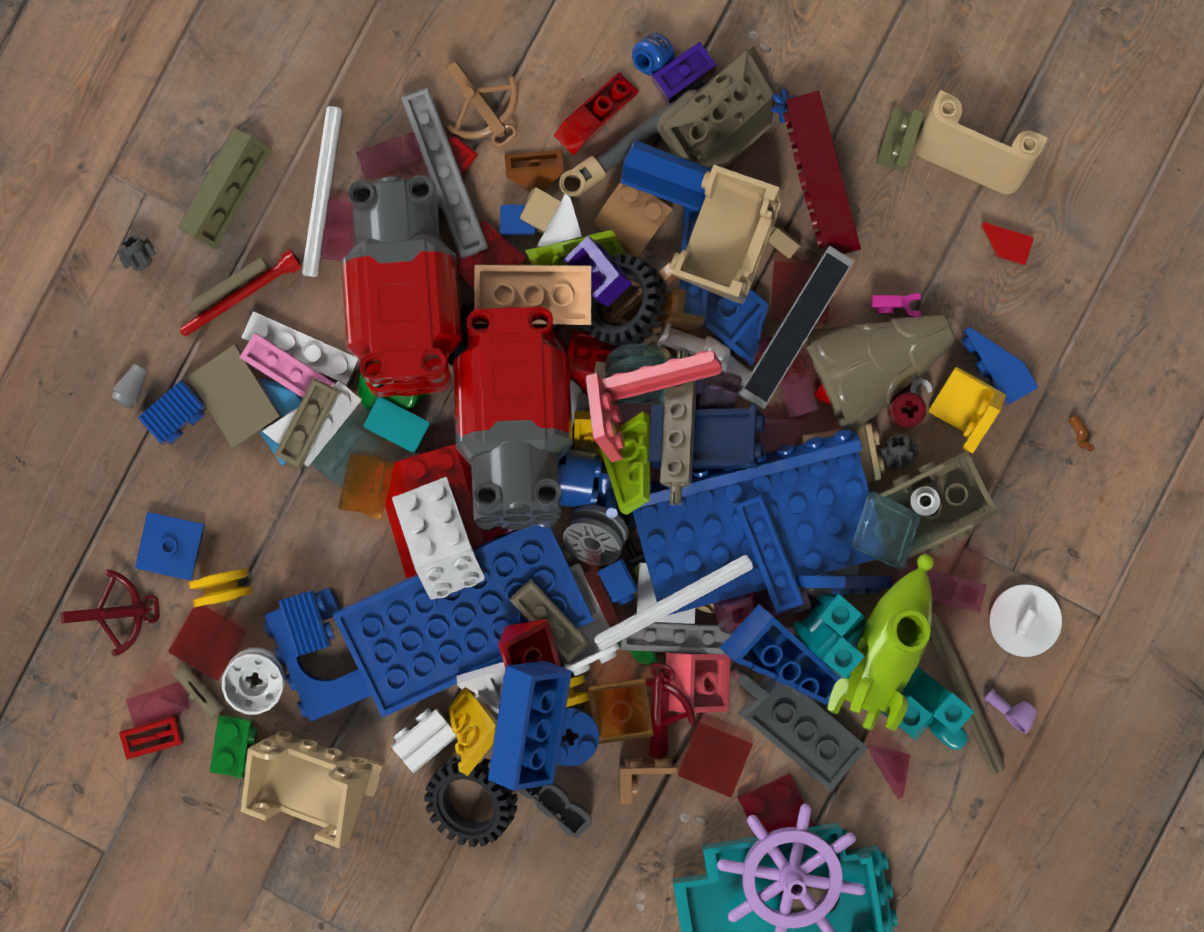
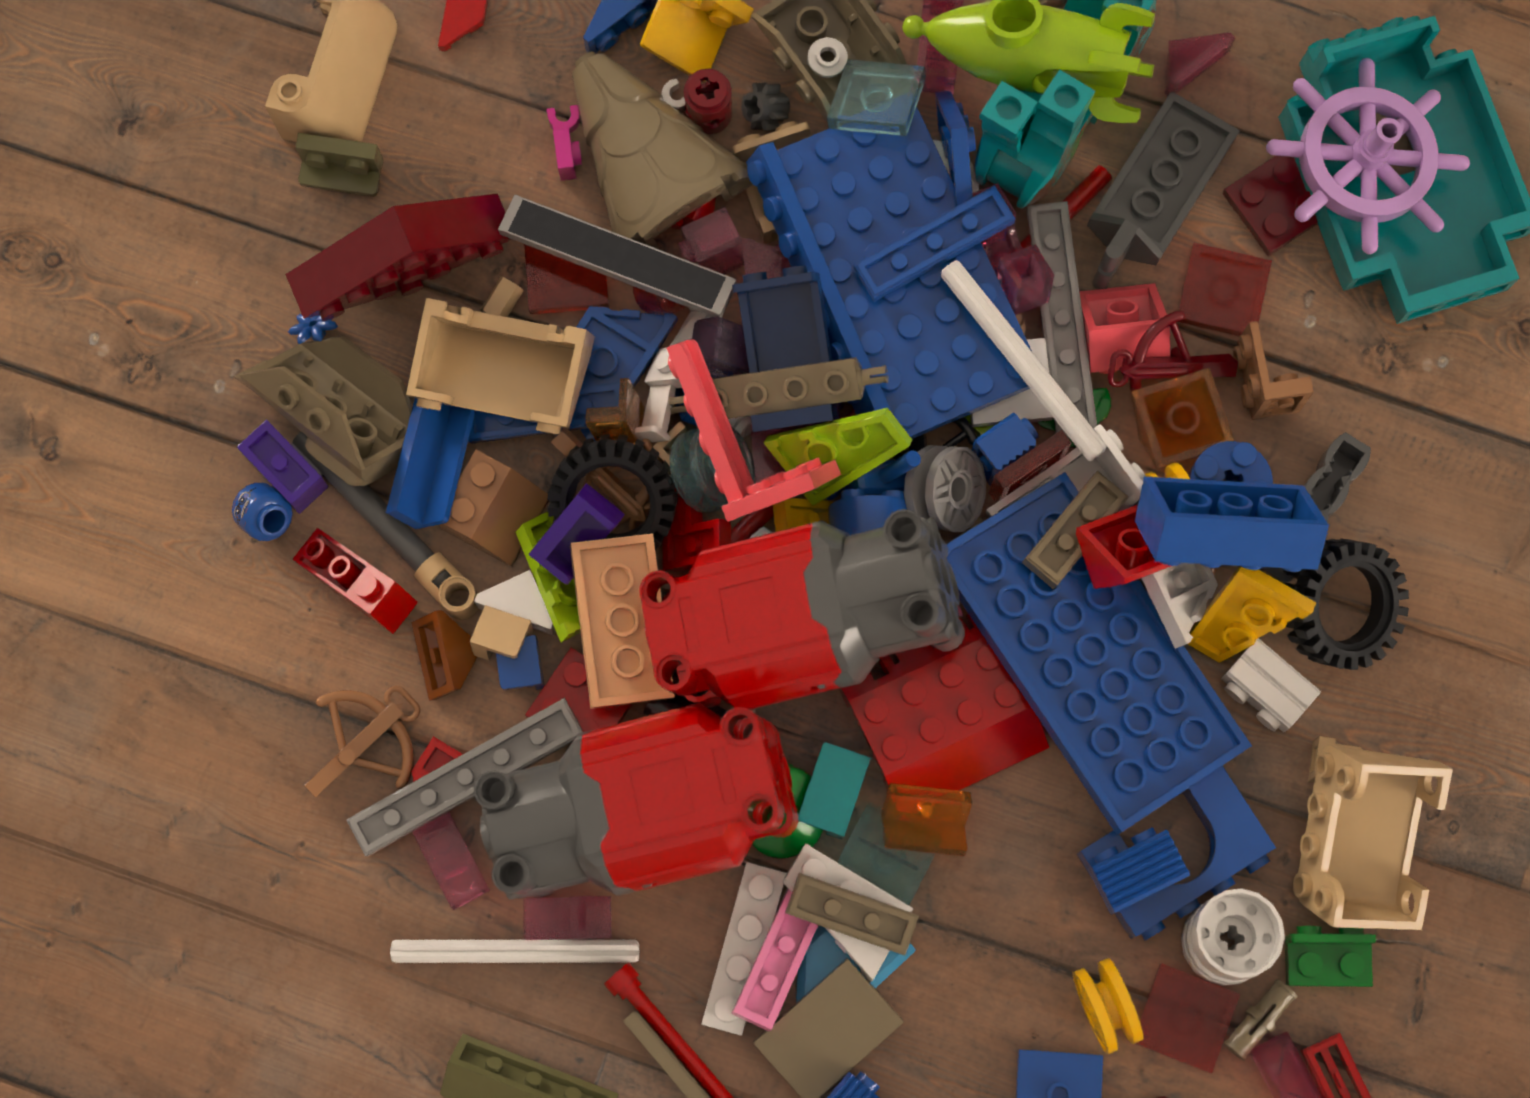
camera: 100 degrees left, 10 degrees down
(437, 539) = (987, 696): white bracket -> none
(775, 652) = (1069, 208): blue wedge -> none

